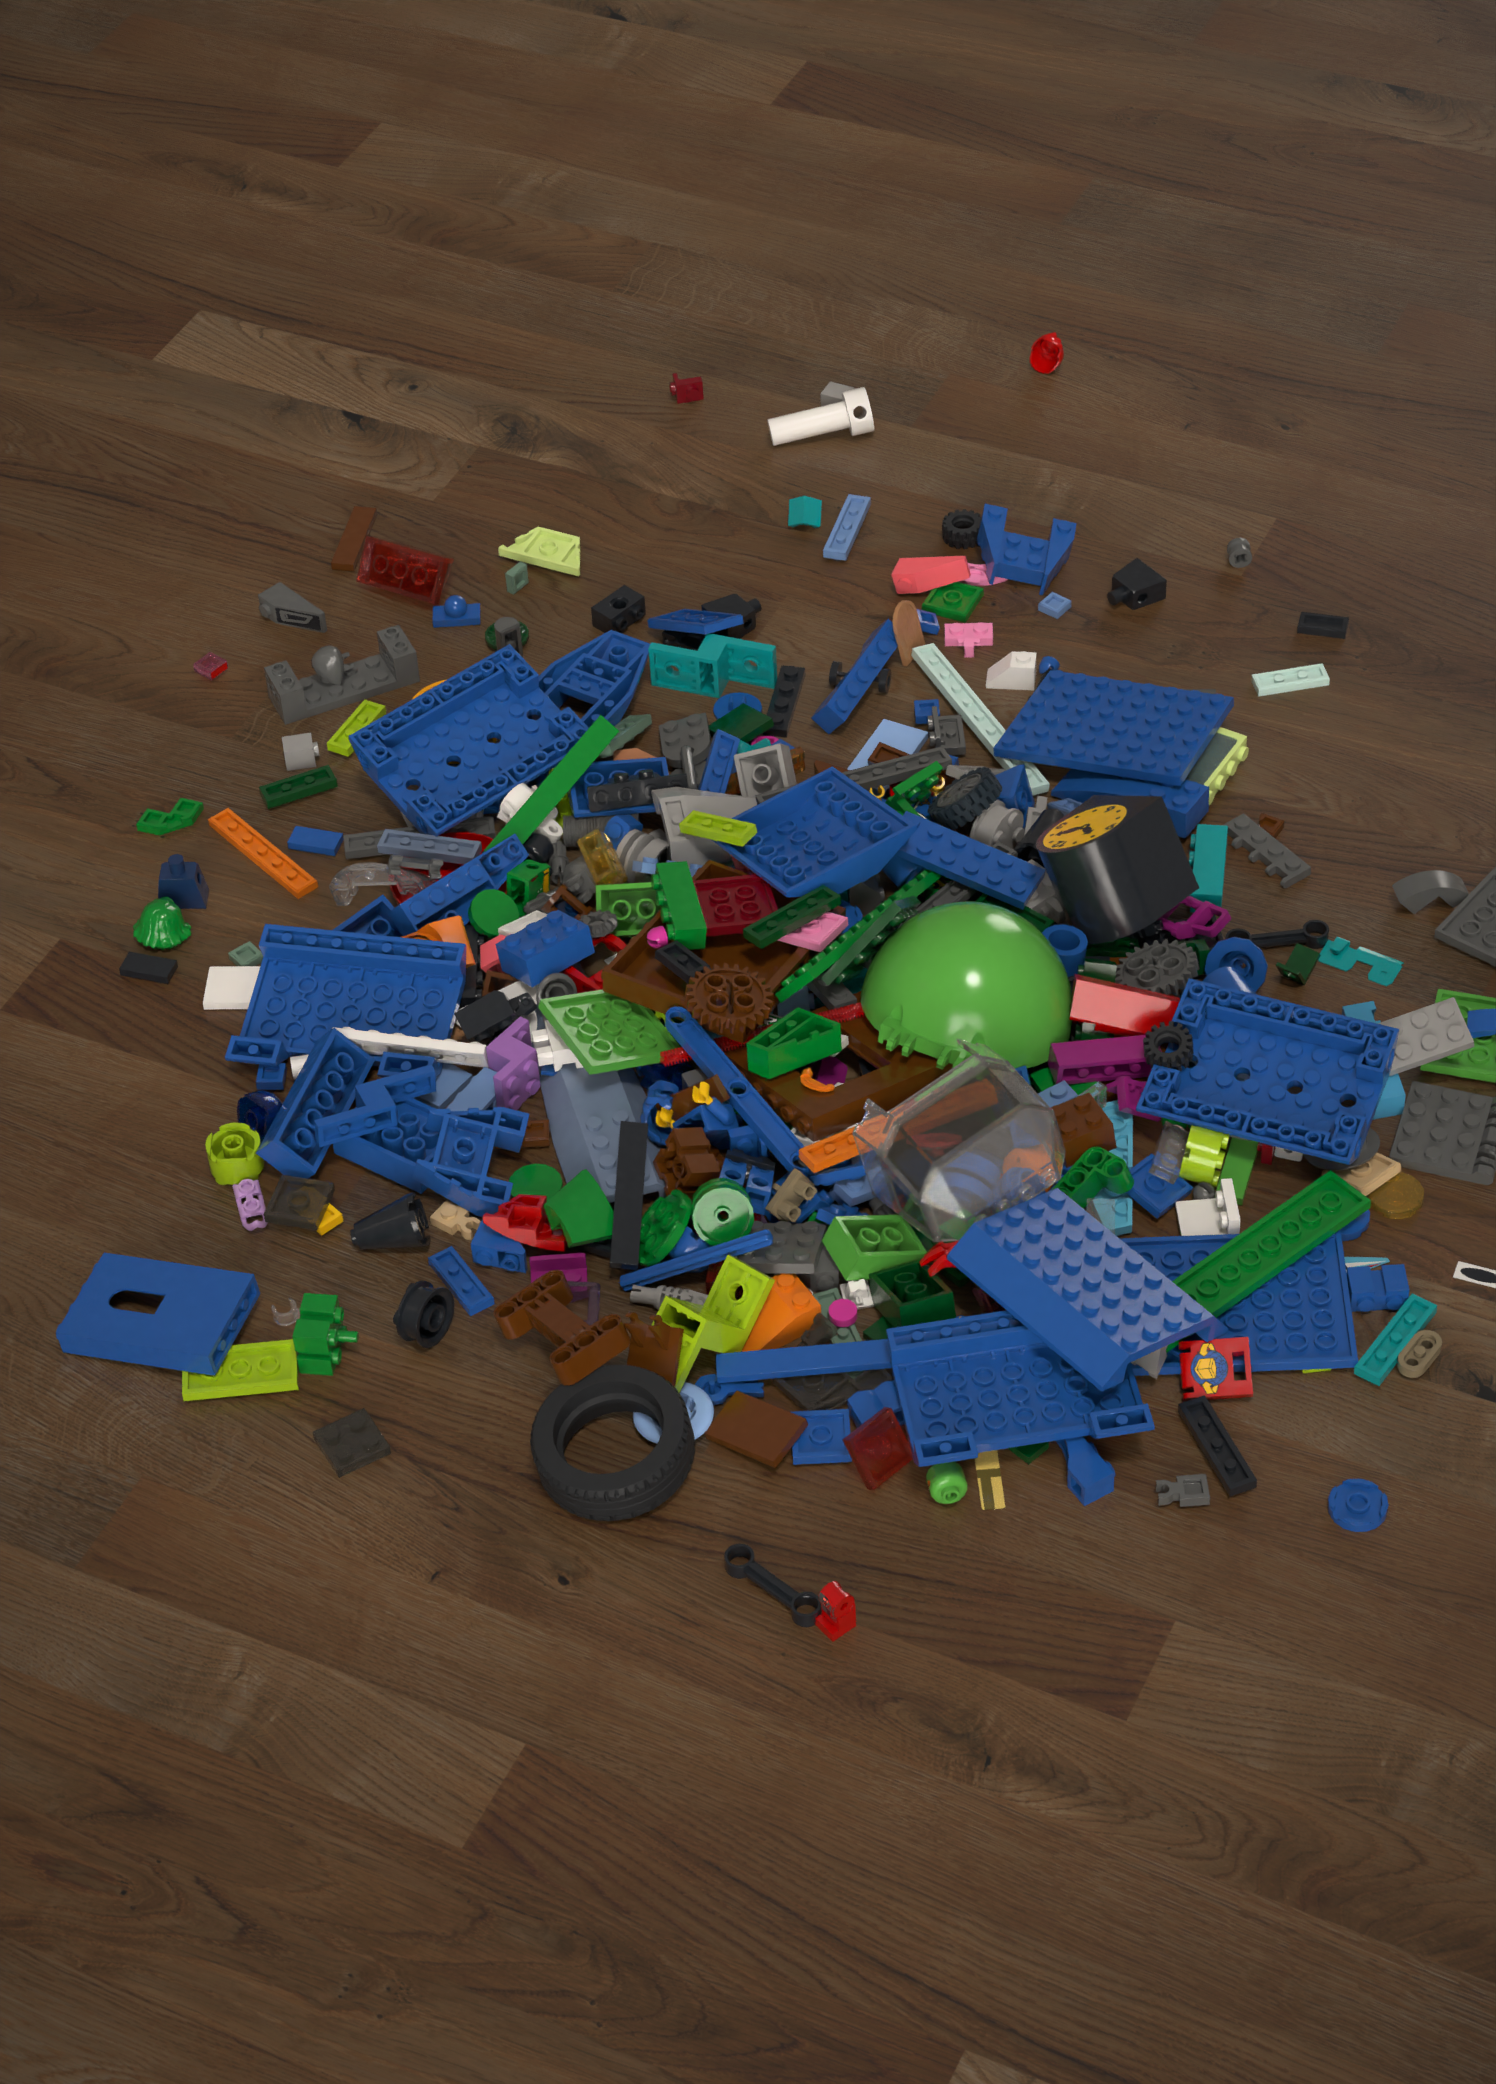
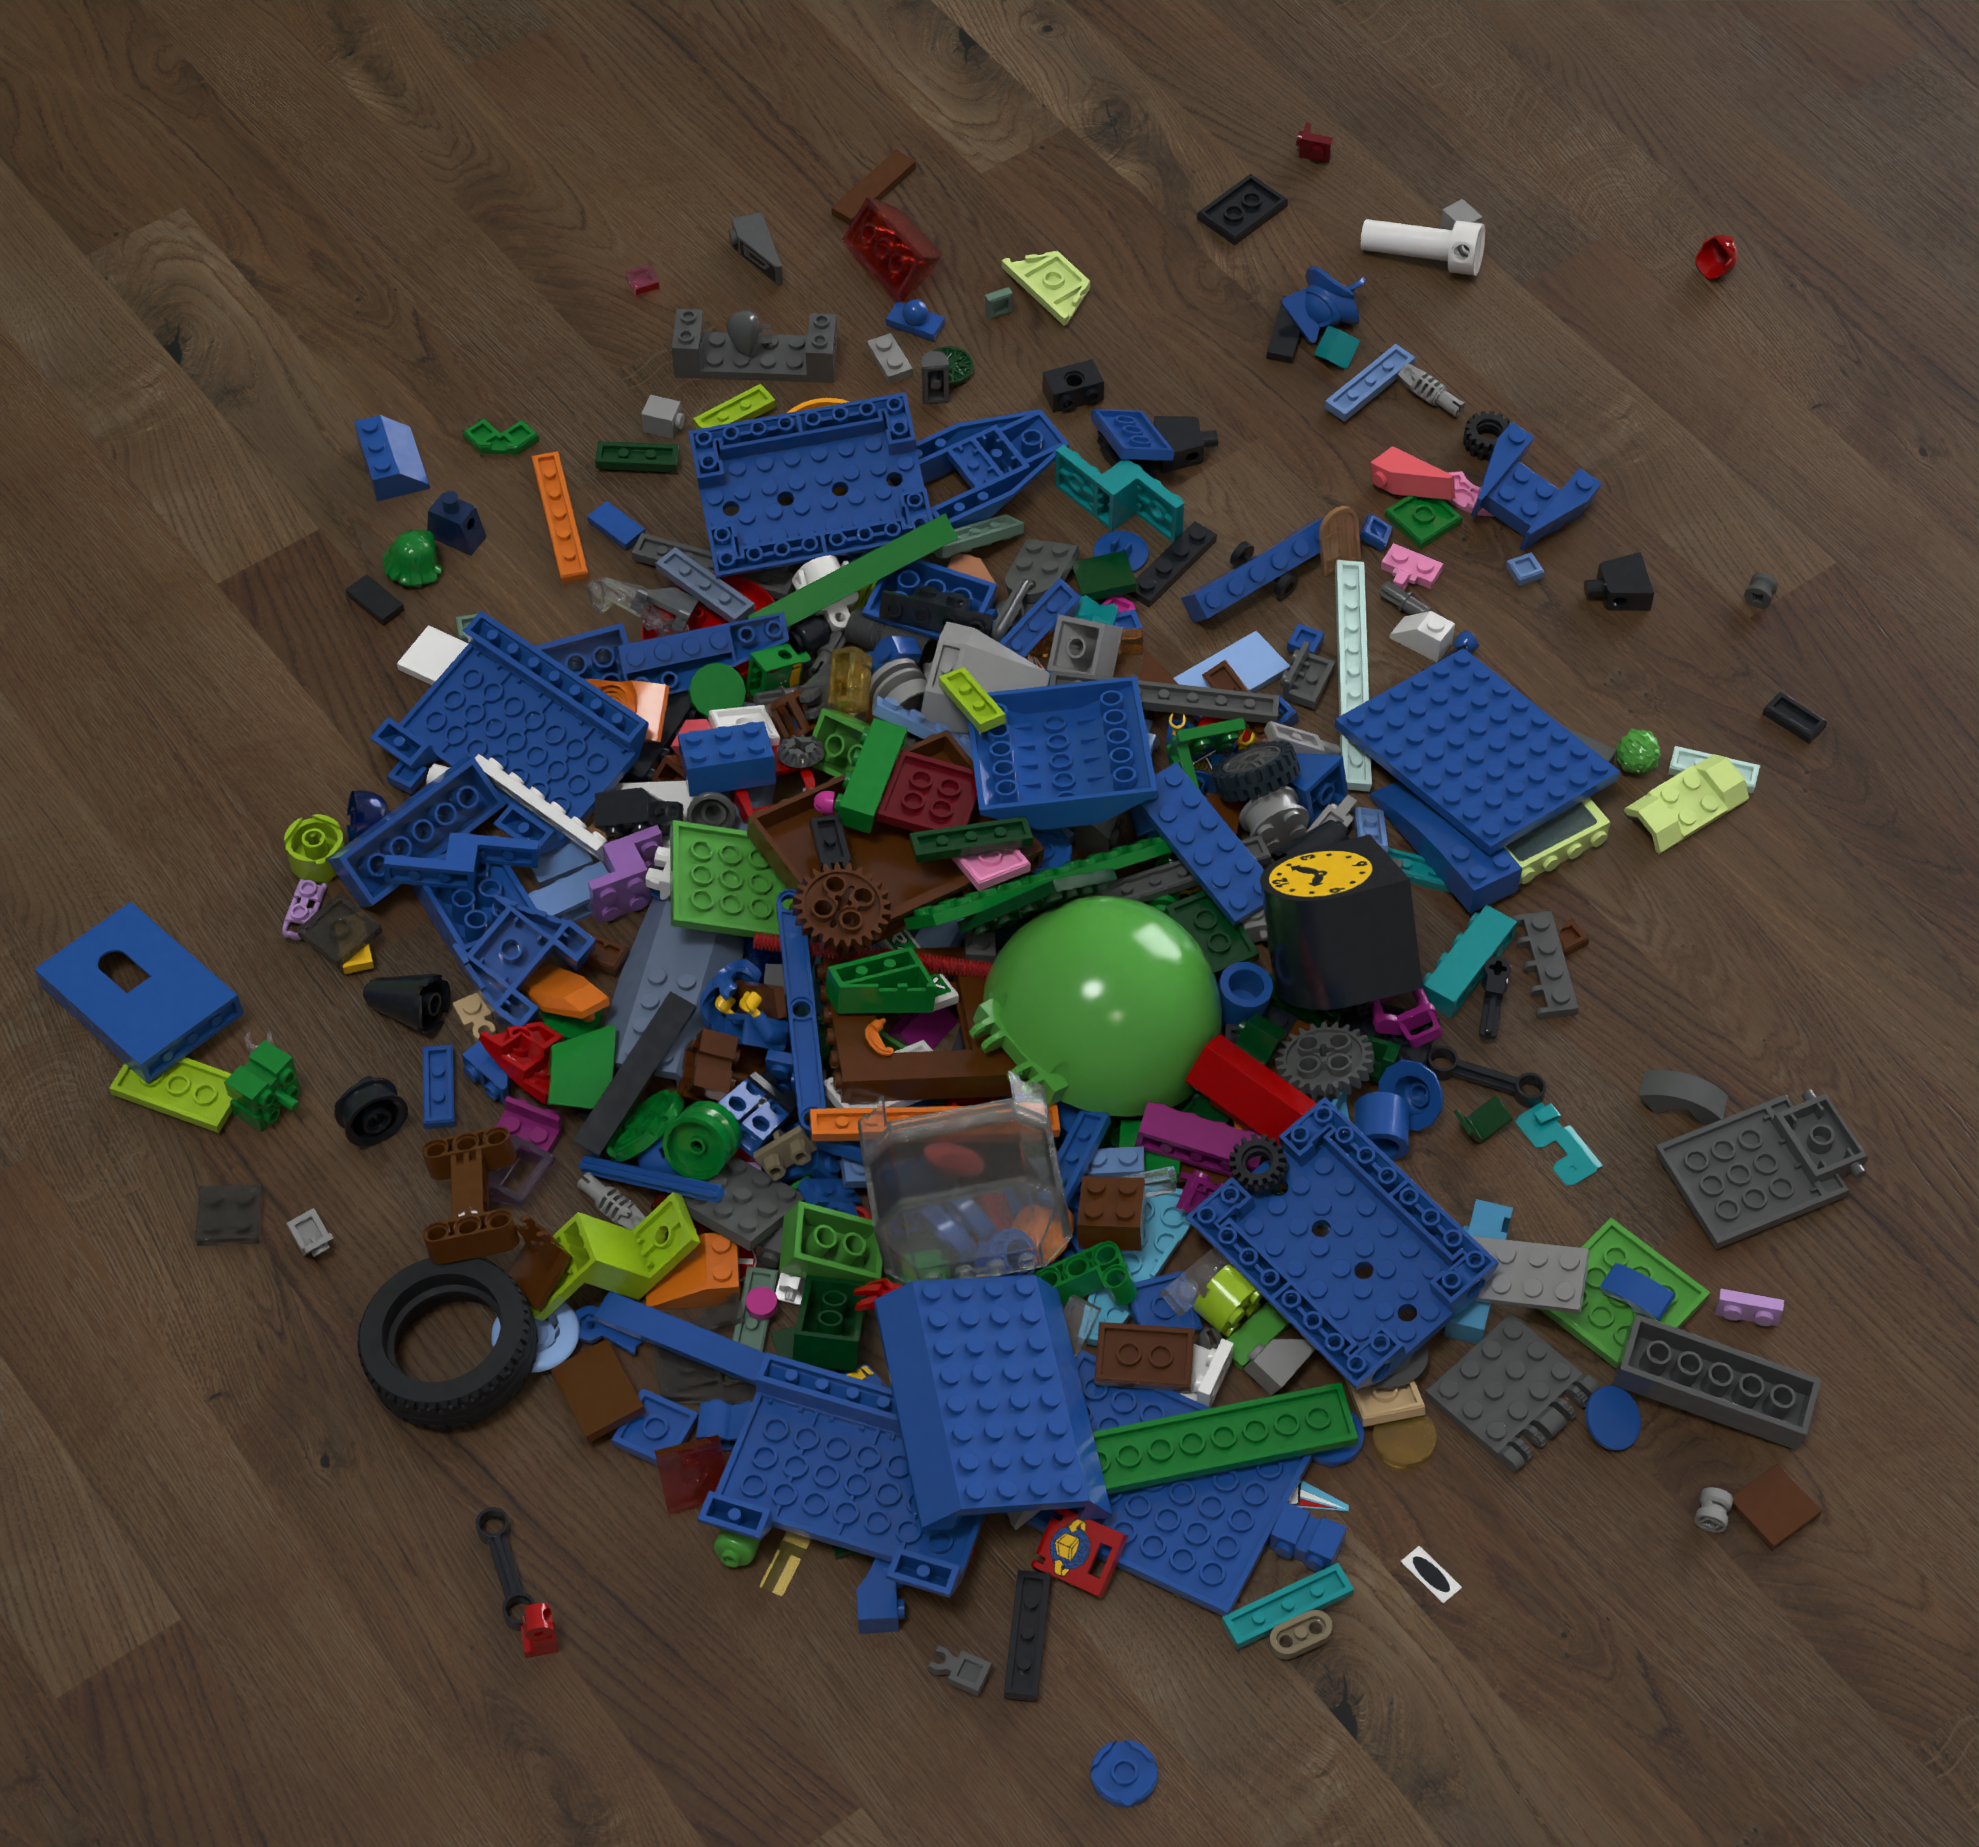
camera: 25 degrees right, 10 degrees up
(86, 865) = (390, 457): none -> blue slope
(433, 1424) = (309, 1233): none -> light grey bracket
(454, 647) = (889, 358): none -> light grey plate
(528, 1166) = (564, 993): none -> orange piece
(660, 451) = (1242, 209): none -> black tile
(756, 516) = (1284, 338): none -> black tile
(775, 483) = (1322, 303): none -> blue helmet
(896, 515) = (1430, 389): none -> light grey hinge
(979, 657) = (1402, 599): none -> dark grey axle
(1168, 1220) = (1144, 1356): none -> reddish brown tile
(1232, 683) = (1638, 752): none -> bright green piece
(1241, 880) = (1494, 983): none -> black connector
(1268, 1182) = (1277, 1362): none -> light grey slope
(1291, 703) = (1690, 801): none -> yellowish green piece

